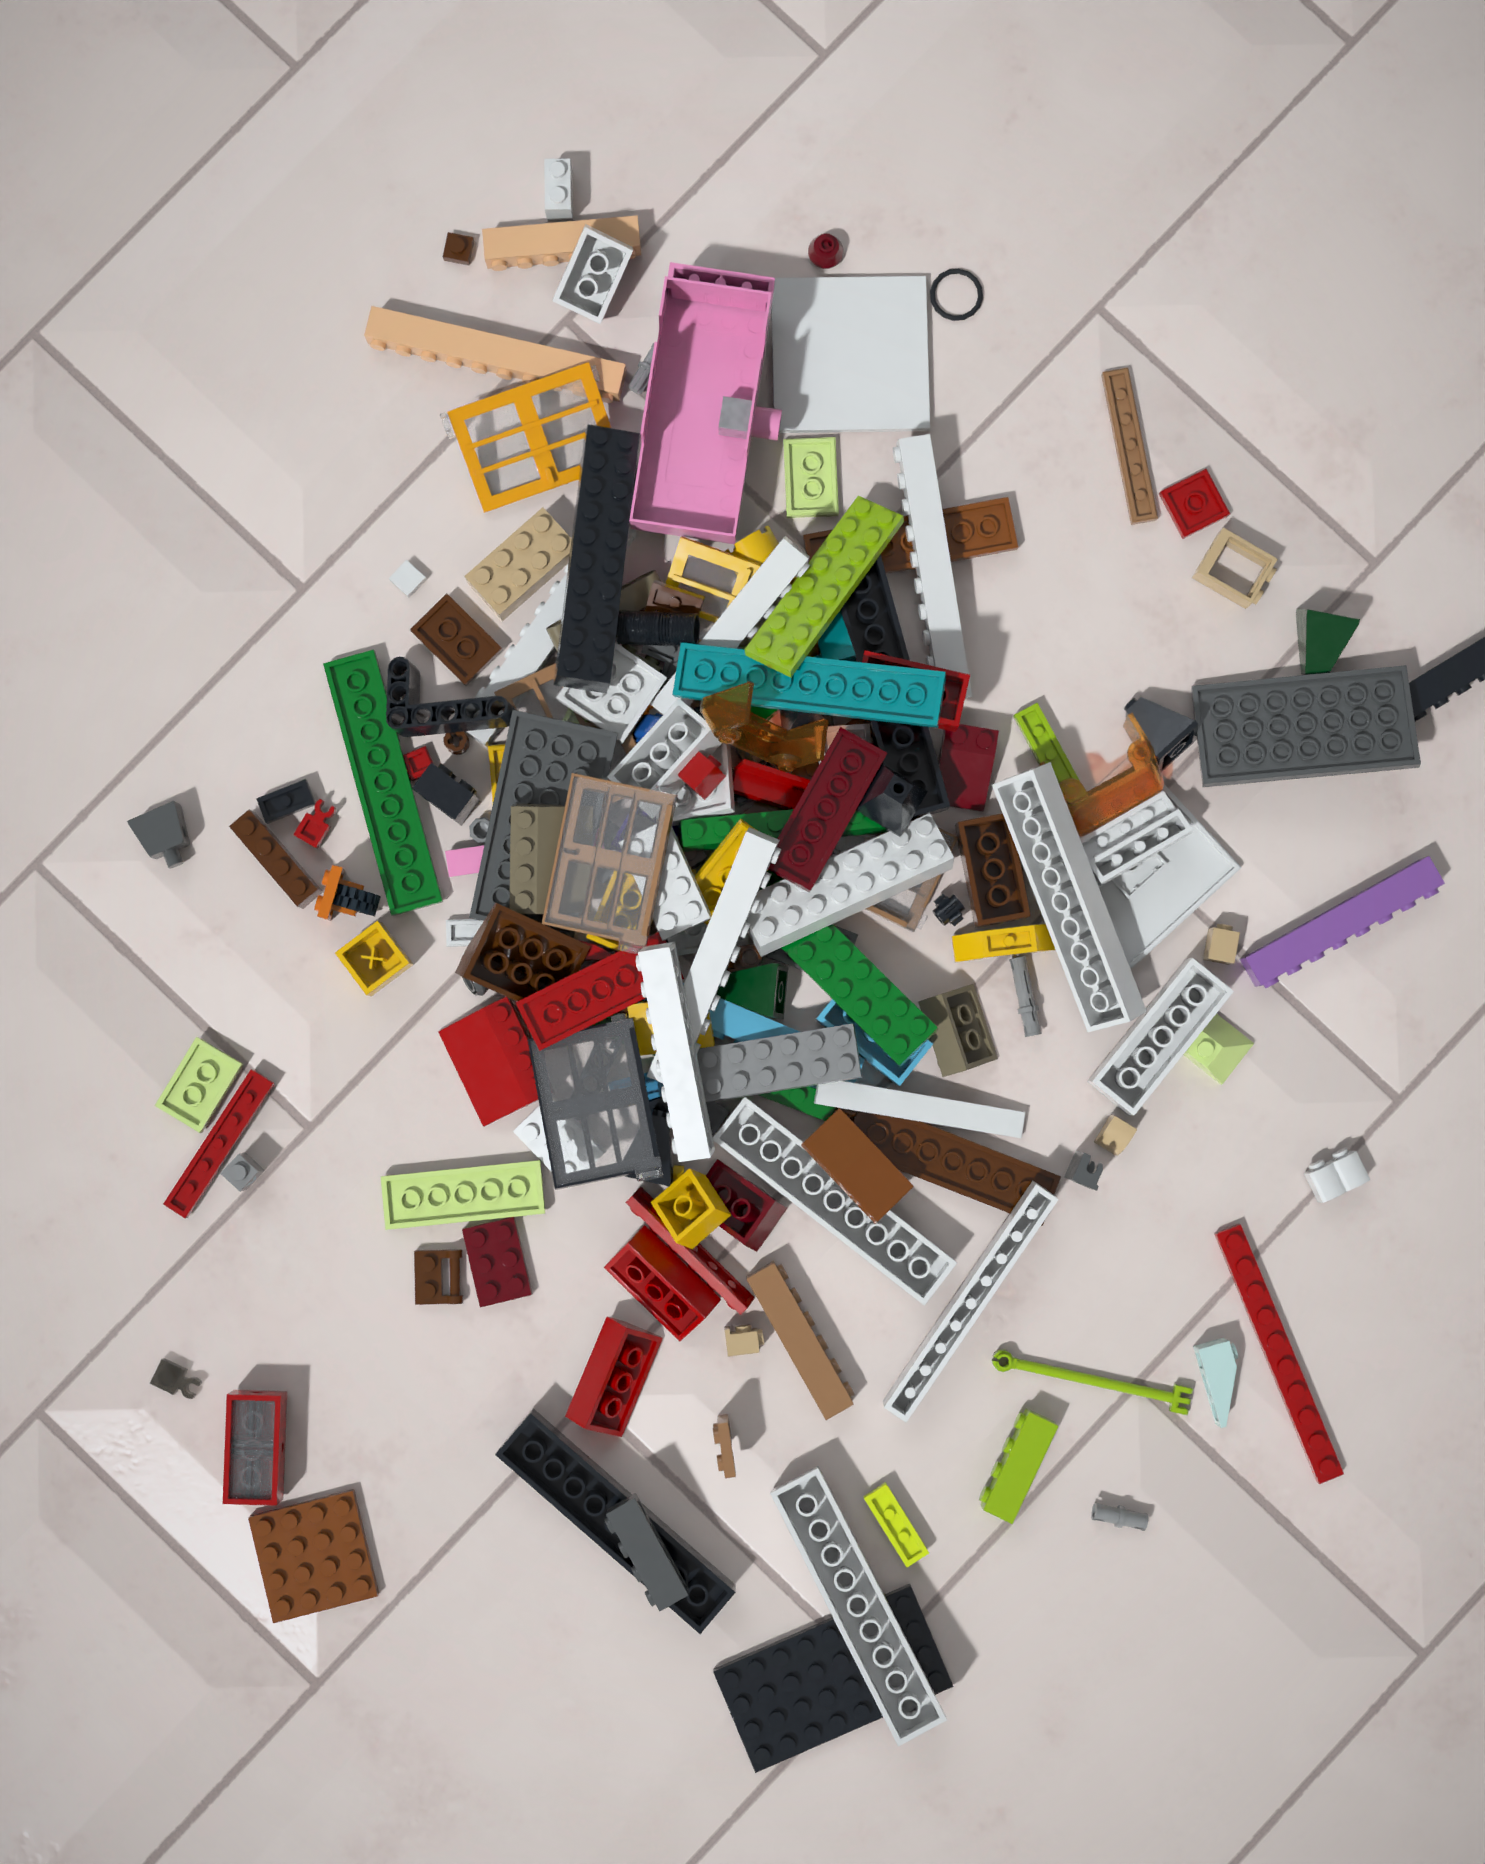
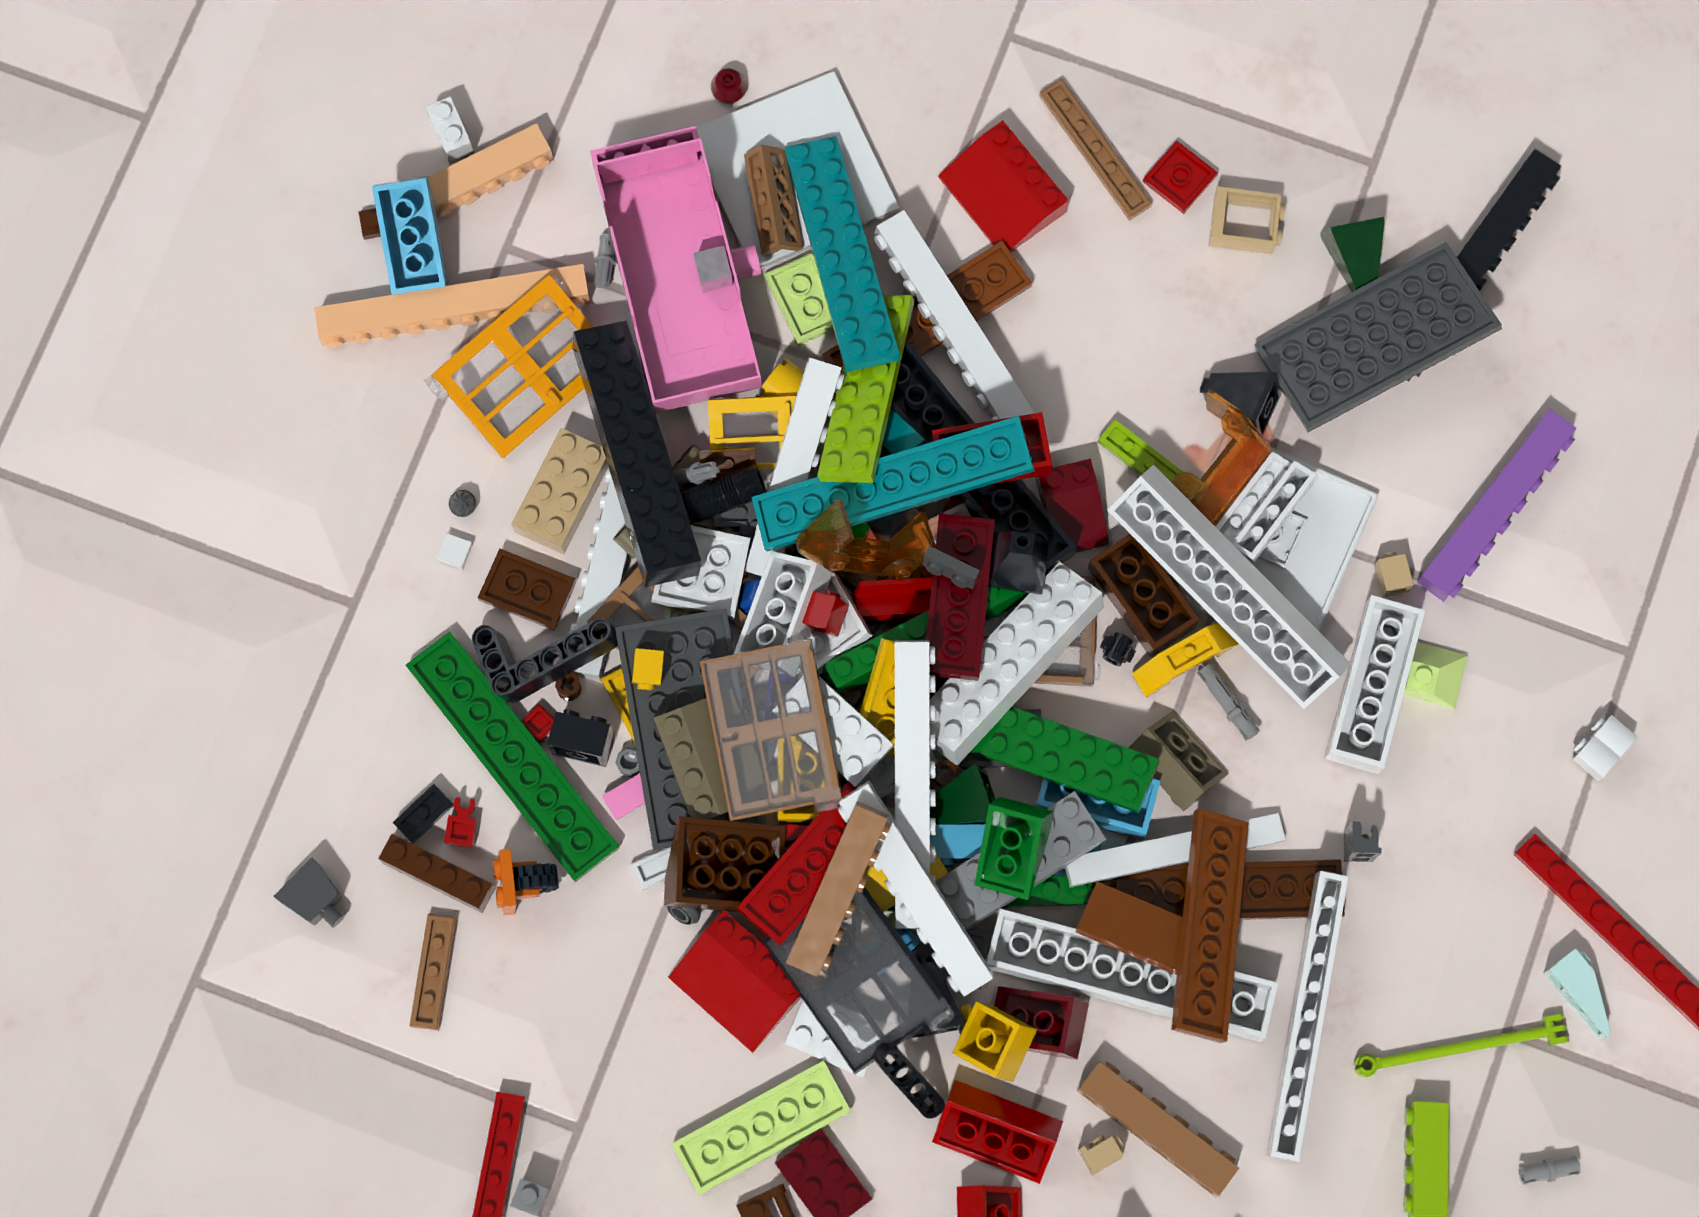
camera: 20 degrees left, 10 degrees down
(199, 1085) = (450, 1130): yellowish green plate -> none
(240, 942) = (433, 972): none -> medium nougat tile
(374, 958) = (575, 929): yellow brick -> none
(431, 538) = (462, 503): none -> dark grey plate
(481, 273) = (410, 235): none -> medium azure brick
(524, 759) = (647, 668): none -> yellow brick
(593, 274) = (517, 193): white brick -> none
(602, 1212) = (909, 1080): none -> black beam
(606, 1026) = (837, 889): none -> medium nougat brick
(643, 600) = (697, 473): none -> light grey axle
(698, 1258) = (1020, 1090): red plate -> none
(777, 1050) = (1012, 847): none -> green slope
(815, 371) = (767, 200): none -> medium nougat fence
(819, 774) = (943, 564): none -> dark grey plate
(856, 452) = (841, 254): none -> teal plate
(919, 1190) = (1210, 926): none -> dark orange plate
(961, 272) = (870, 54): black piece -> none
(1031, 449) = (1004, 188): none -> red slope
(1115, 1135) = (1375, 798): tan brick -> none

